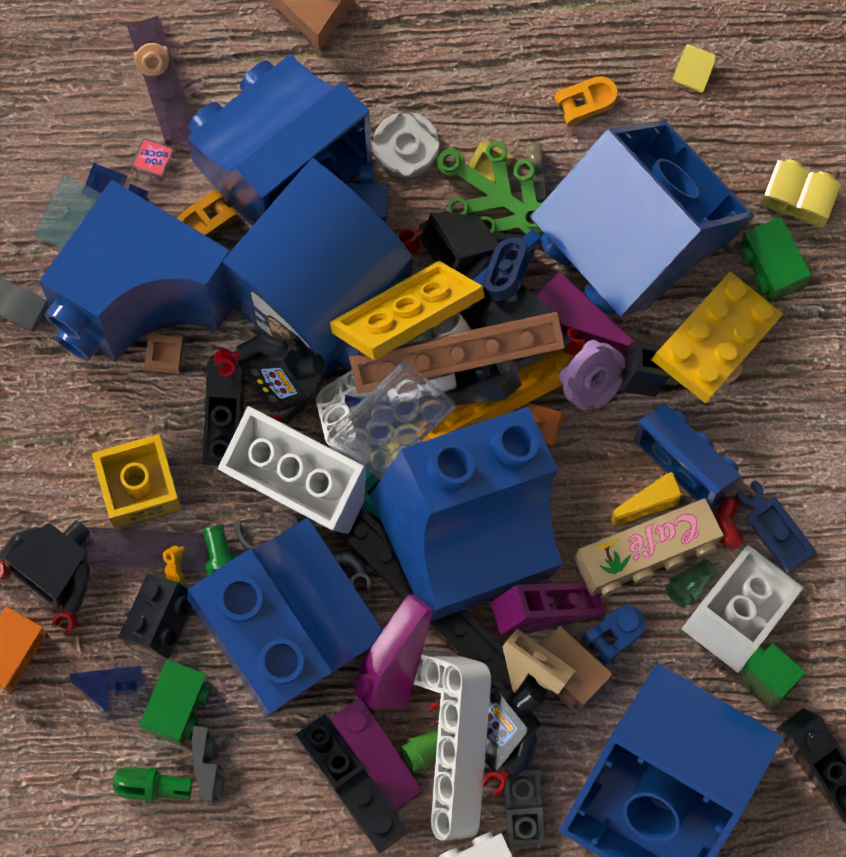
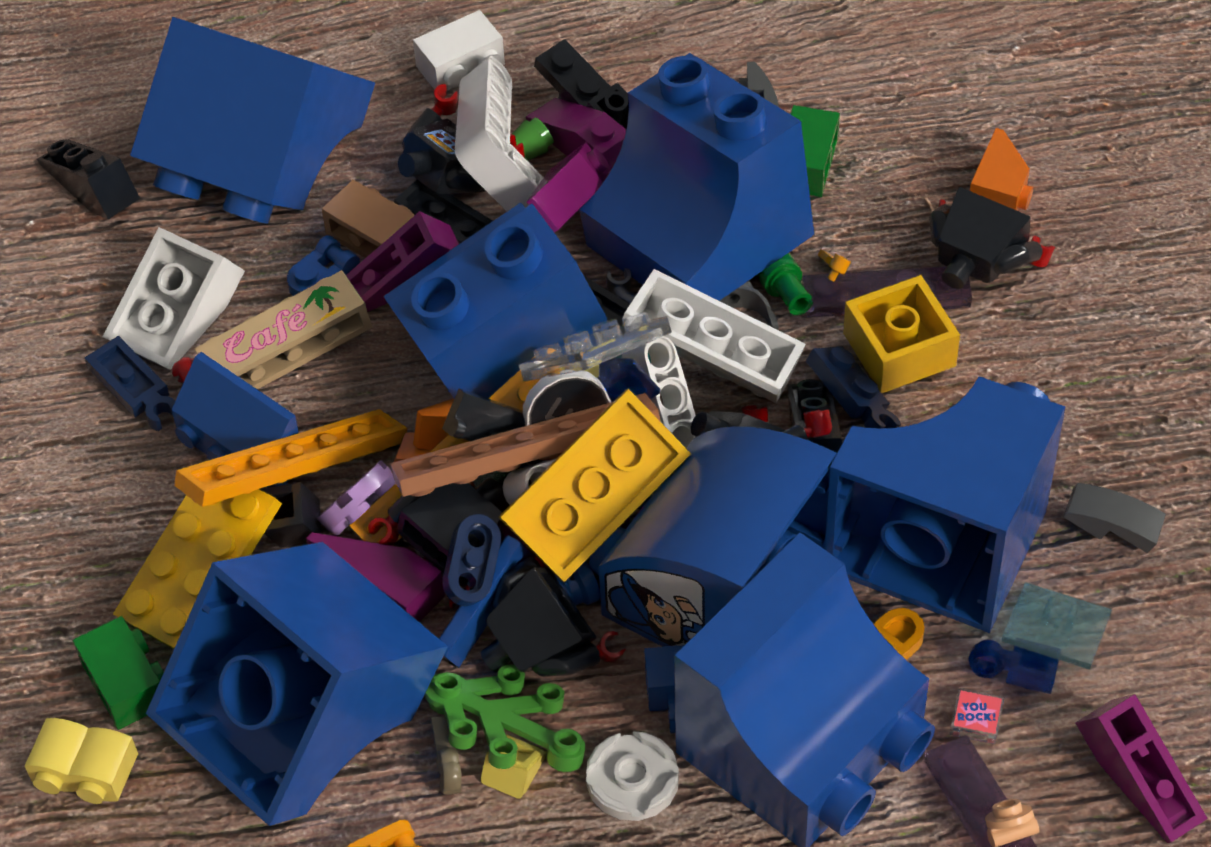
camera: 175 degrees right, 20 degrees down
(50, 102) = (1141, 766): none -> magenta slope
(99, 684) = (890, 158): clear blue slope -> none
(150, 784) = (821, 83): green arm -> none
(157, 615) = (847, 225): black bracket -> none
(185, 446) = (852, 387): none -> dark blue plate
(524, 809) = (410, 101): dark grey slope -> none
(528, 657) = (403, 189): tan slope -> none
(641, 396) = (289, 457): none -> light orange plate
(654, 499) = (293, 383): yellow slope -> none
(689, 584) = (232, 313): clear green cone -> none
(771, 675) = (134, 216): green brick -> none

